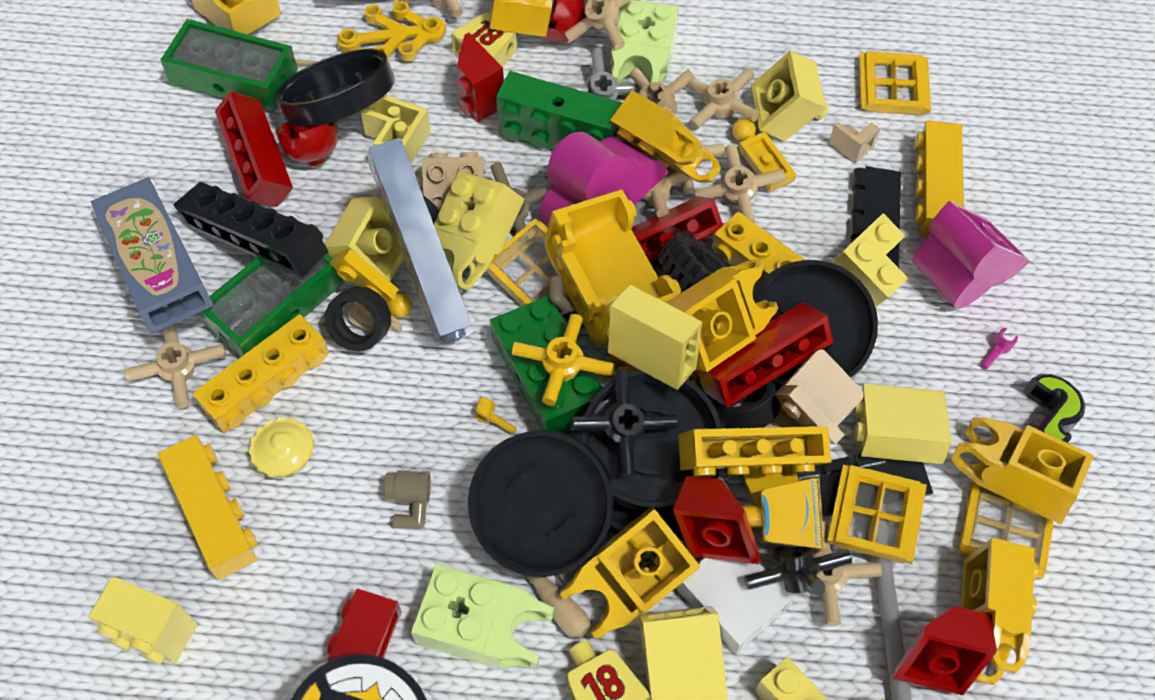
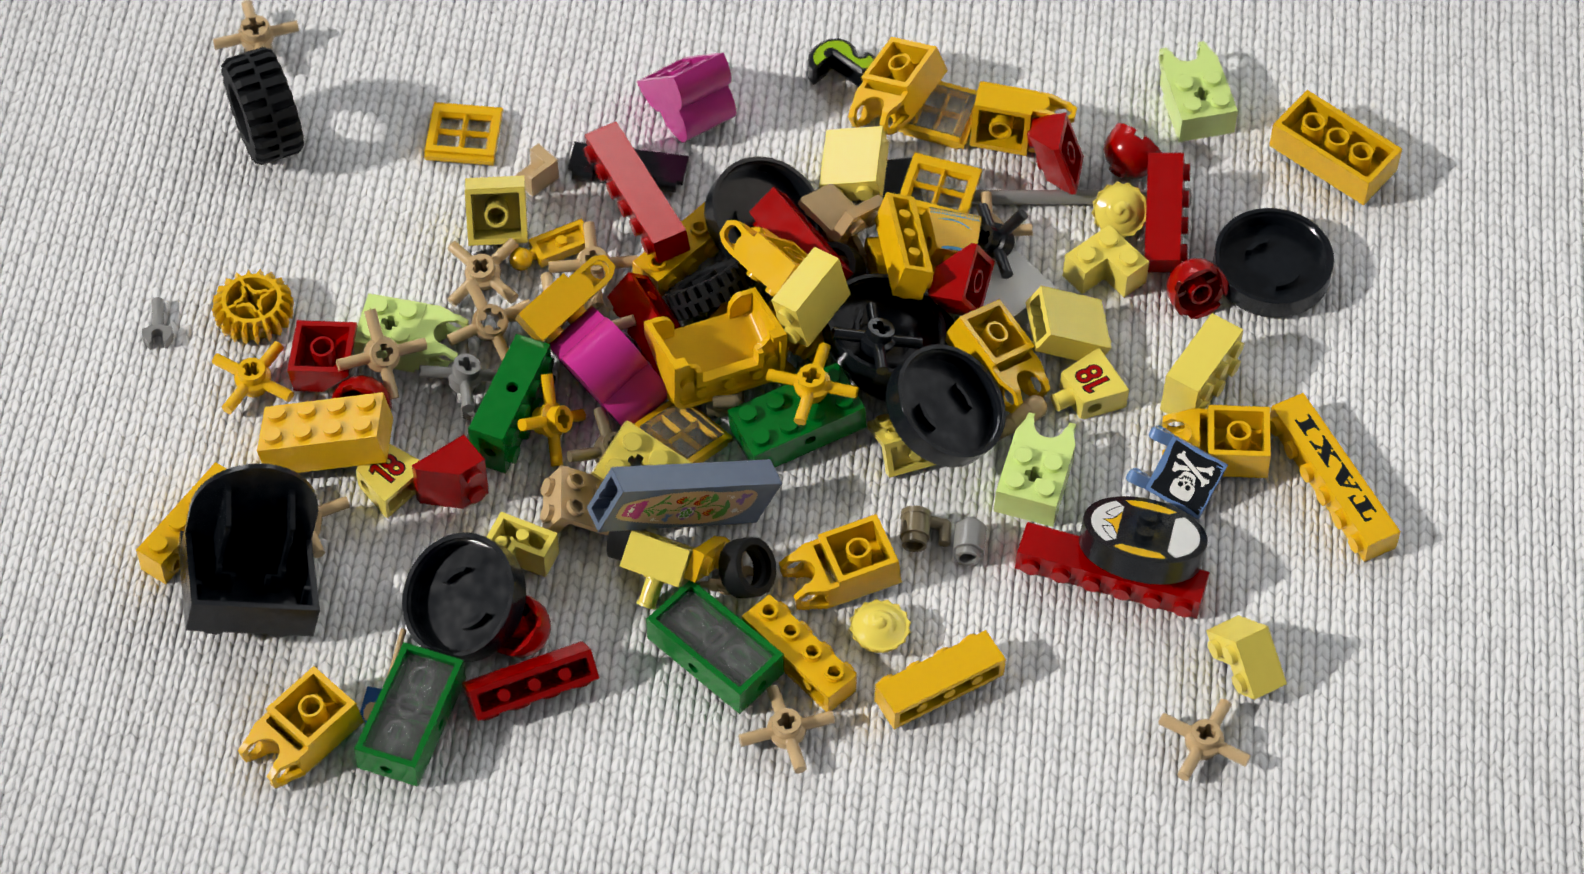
camera: 90 degrees left, 5 degrees down
(142, 621) = (1053, 708): light yellow brick -> none
(151, 255) = (668, 749): brick -> none
(252, 228) = (666, 649): black brick -> none
(362, 416) = (843, 564): none -> yellow brick
(388, 543) = (969, 541): none -> light grey brick
(425, 30) = (363, 566): yellow plant -> none
(485, 414) = (836, 475): yellow hand -> none
(533, 141) = (551, 419): none -> yellow bar
(822, 208) = (636, 193): none -> brick
(868, 259) = (686, 170): light yellow brick -> none
(938, 170) = (594, 106): yellow brick -> none
(1000, 345) = (768, 93): dark pink hand -> none

